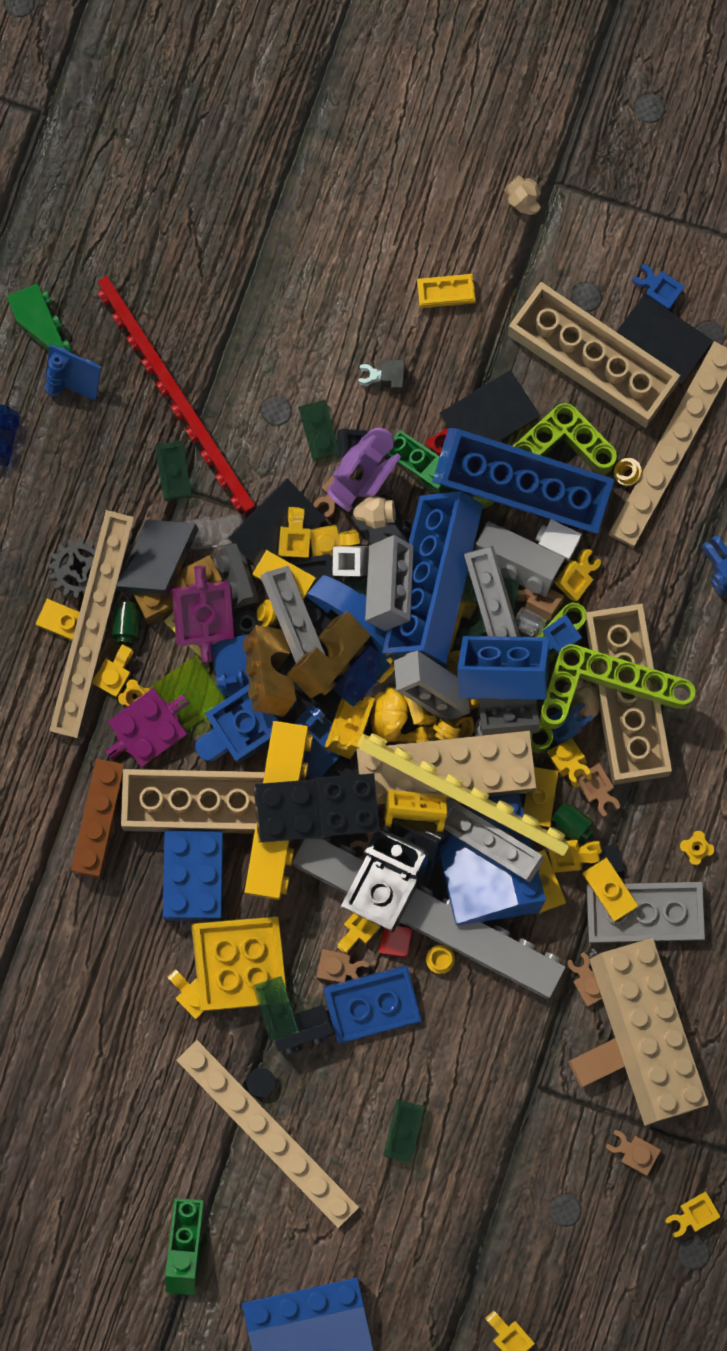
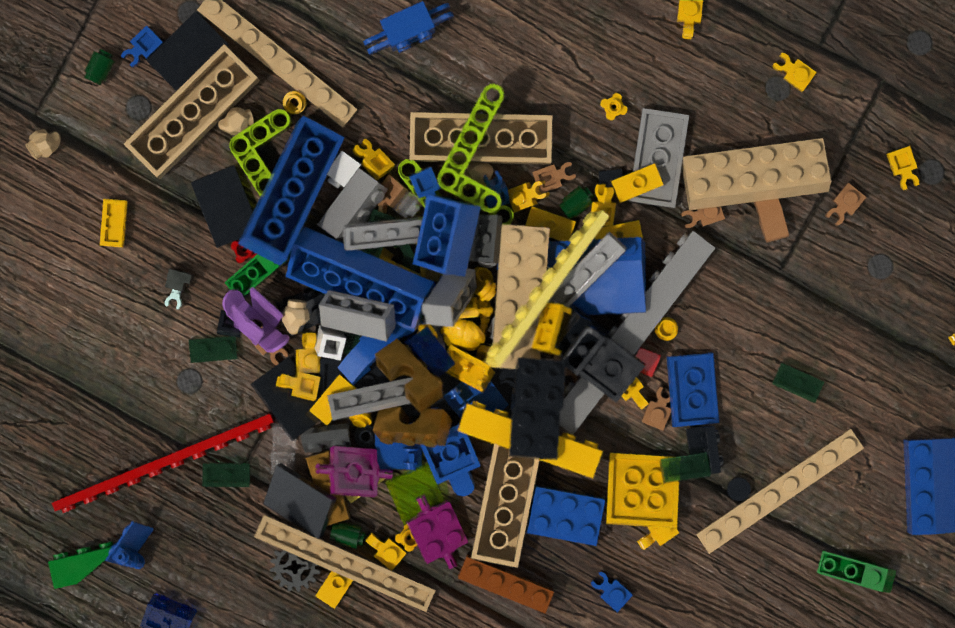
camera: 80 degrees left, 10 degrees up
(108, 954) = (613, 594): none -> blue plate
(593, 407) = (236, 121): none -> tan rock
(625, 242) = (99, 67): none -> dark green brick

